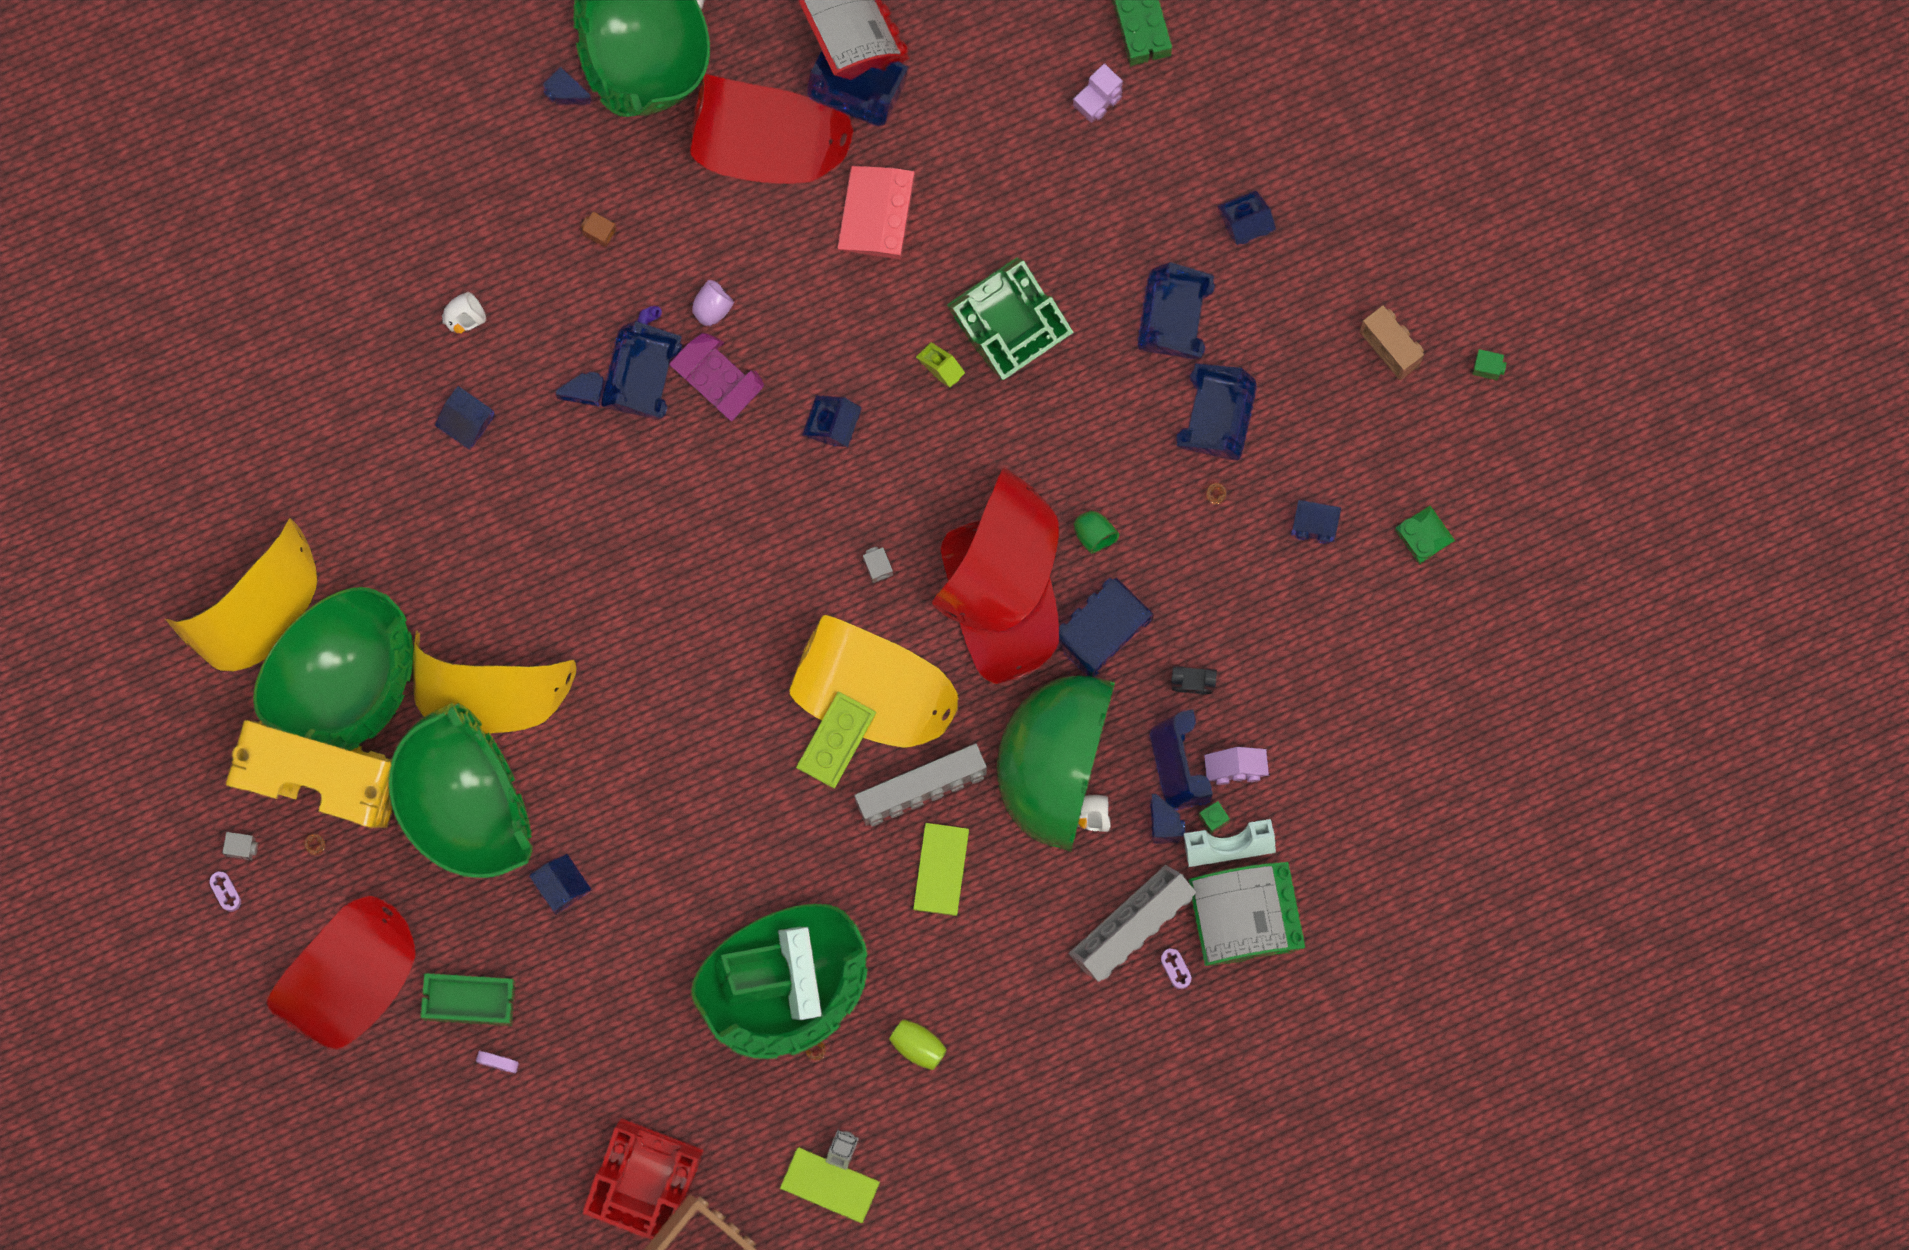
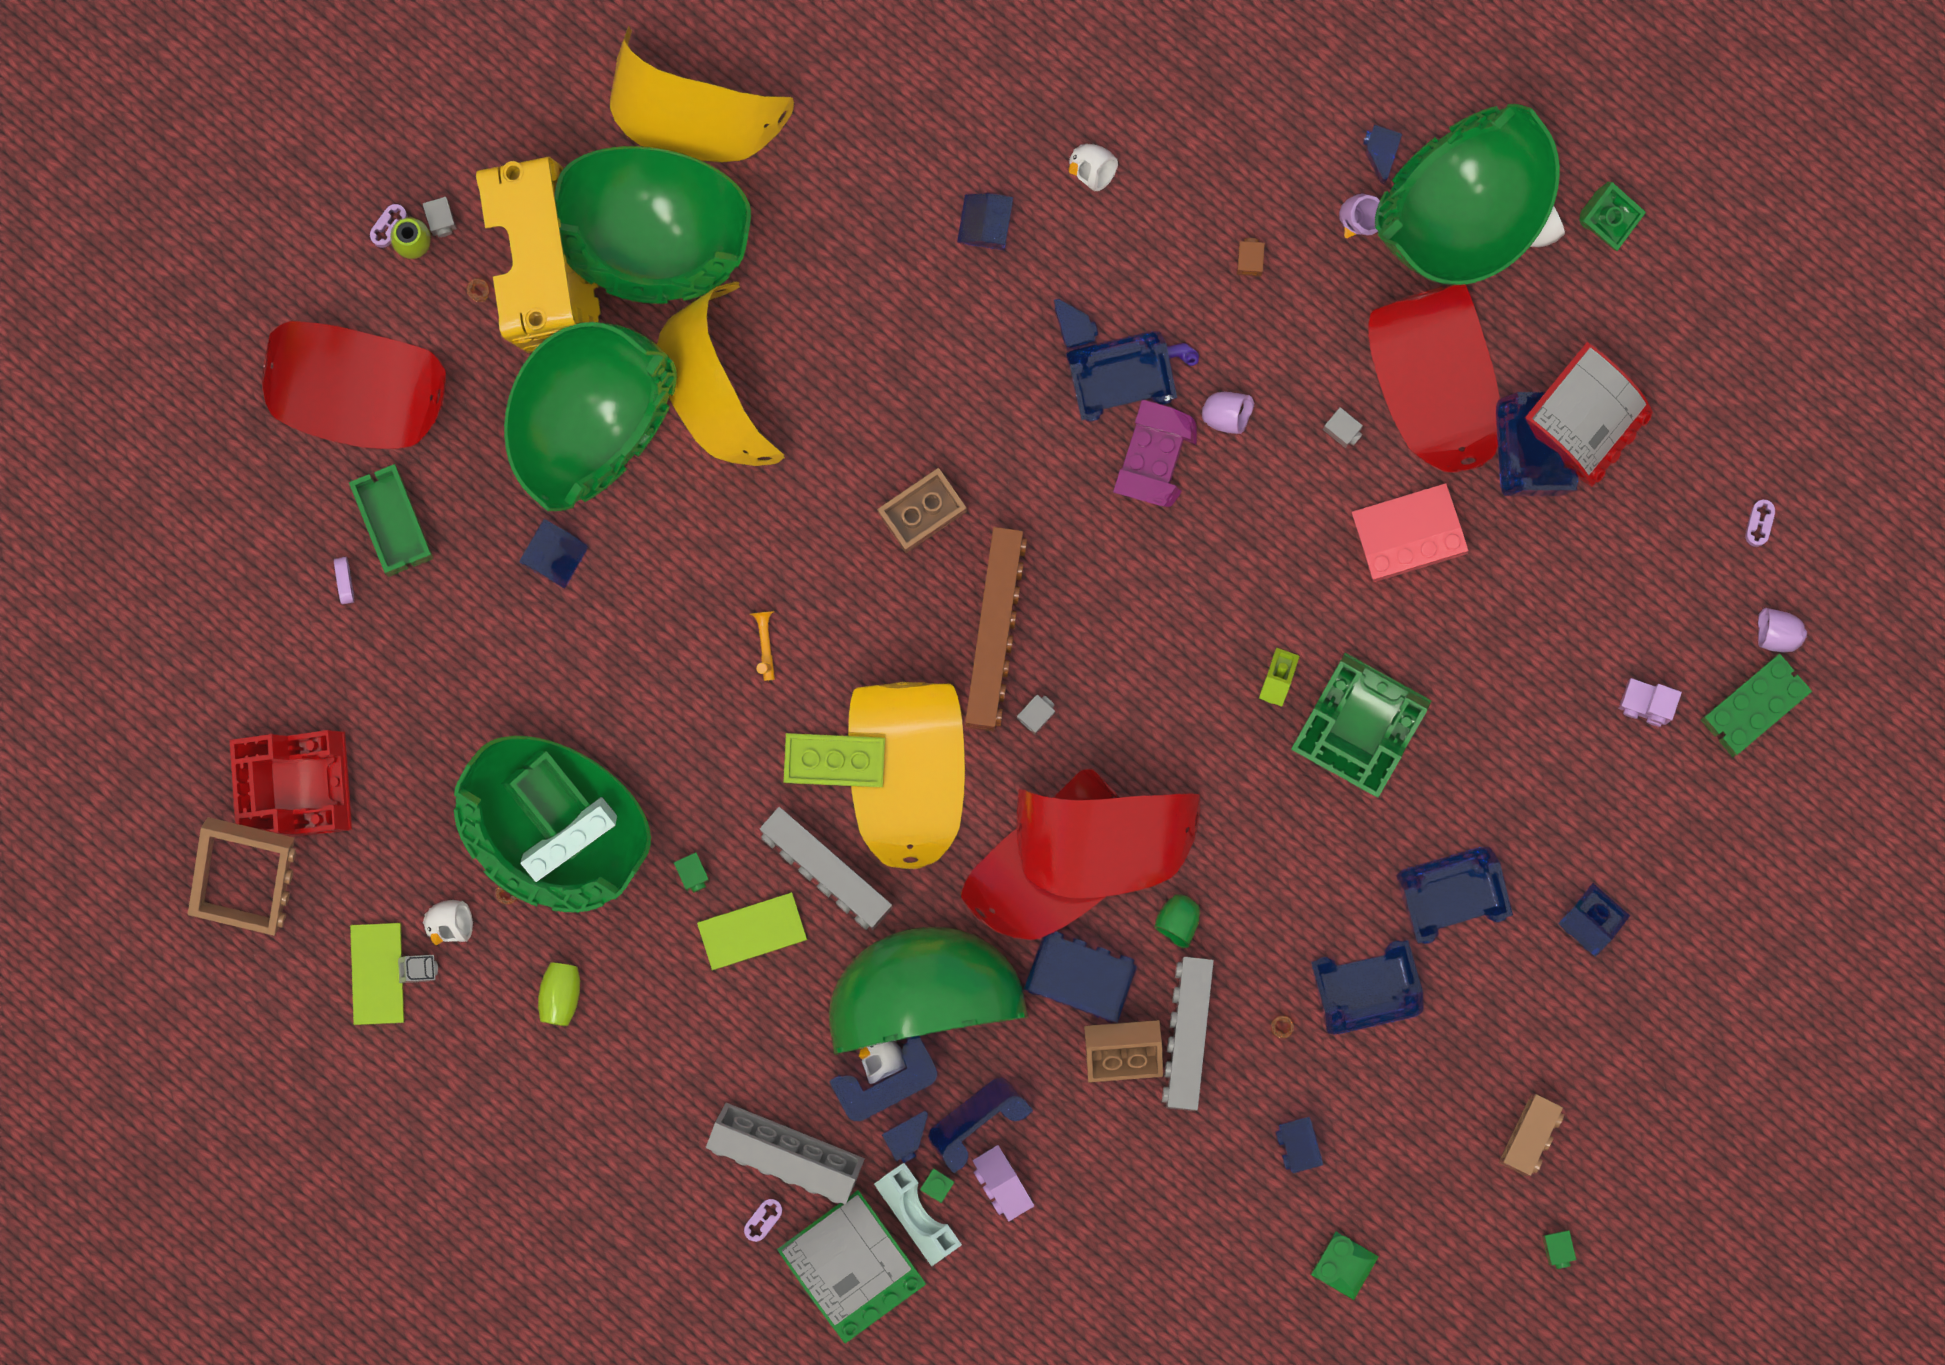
camera: 65 degrees right, 5 degrees up
(252, 881) = (410, 238): none -> lime piece
(608, 128) = (1359, 215): none -> lavender piece
(671, 575) = (922, 510): none -> medium nougat brick
(730, 755) = (766, 667): none -> light orange piece
(769, 222) = (1343, 428): none -> light grey brick
(794, 563) = (994, 627): none -> dark orange brick
(816, 1106) = (448, 922): none -> white piece
(832, 420) = (1165, 594): clear blue slope -> none
(871, 894) = (692, 873): none -> green brick
(1118, 786) = (917, 1077): none -> clear blue windscreen
(1177, 621) = (1123, 1051): none -> medium nougat brick
(1188, 565) = (1189, 1033): none -> light grey brick
(1193, 680) = (1071, 1096): black piece -> none

